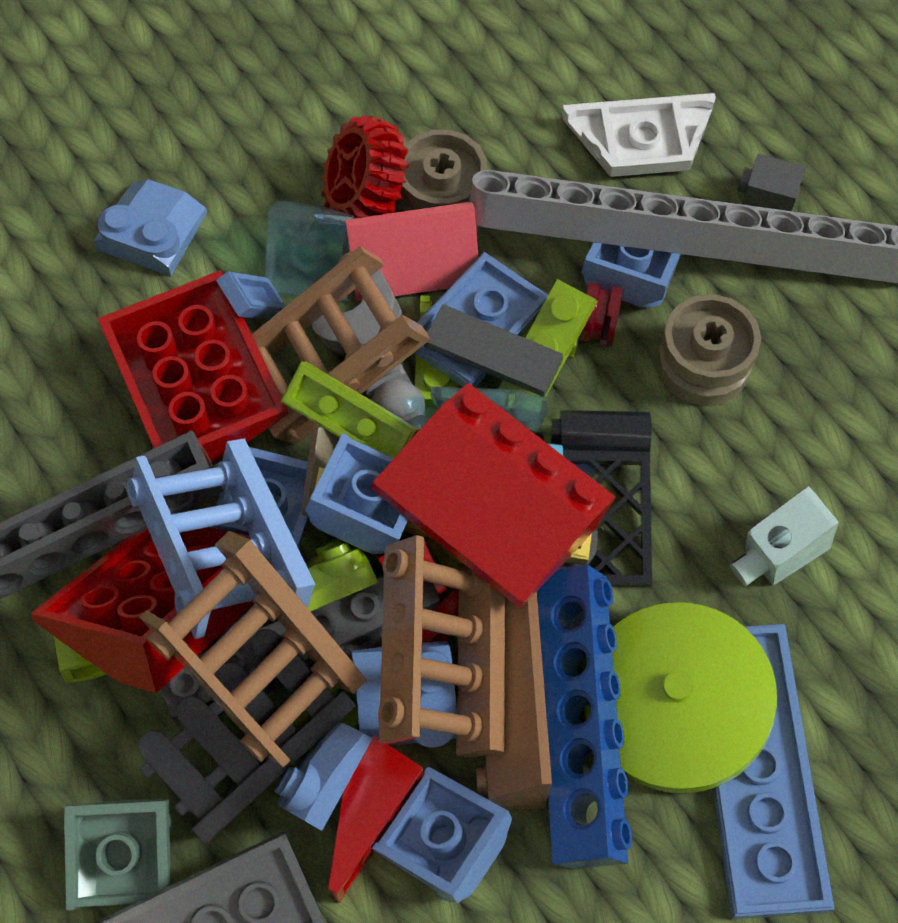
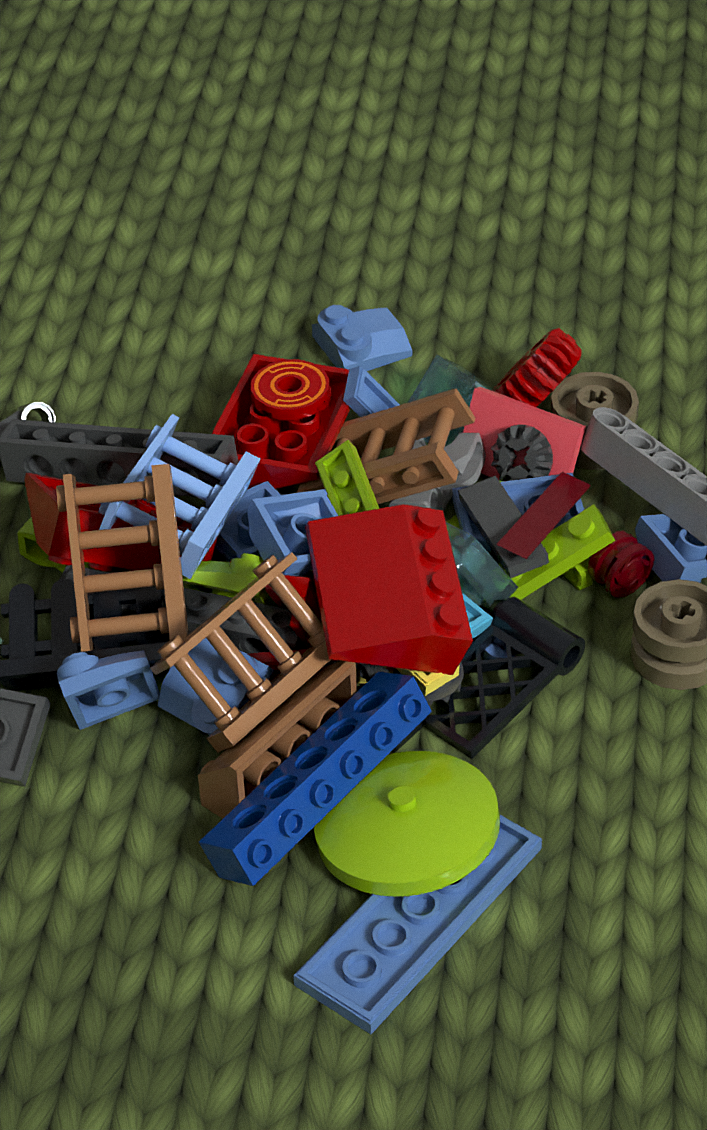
camera: 45 degrees right, 20 degrees down
(175, 315) = (273, 379): none -> red tile
(368, 809) = (120, 738): red slope -> none
(423, 249) = (518, 437): none -> dark grey gear
(445, 836) = (151, 787): medium blue slope -> none
(519, 317) = (543, 515): none -> dark red sticker
(786, 540) = (597, 780): light aqua torso -> none

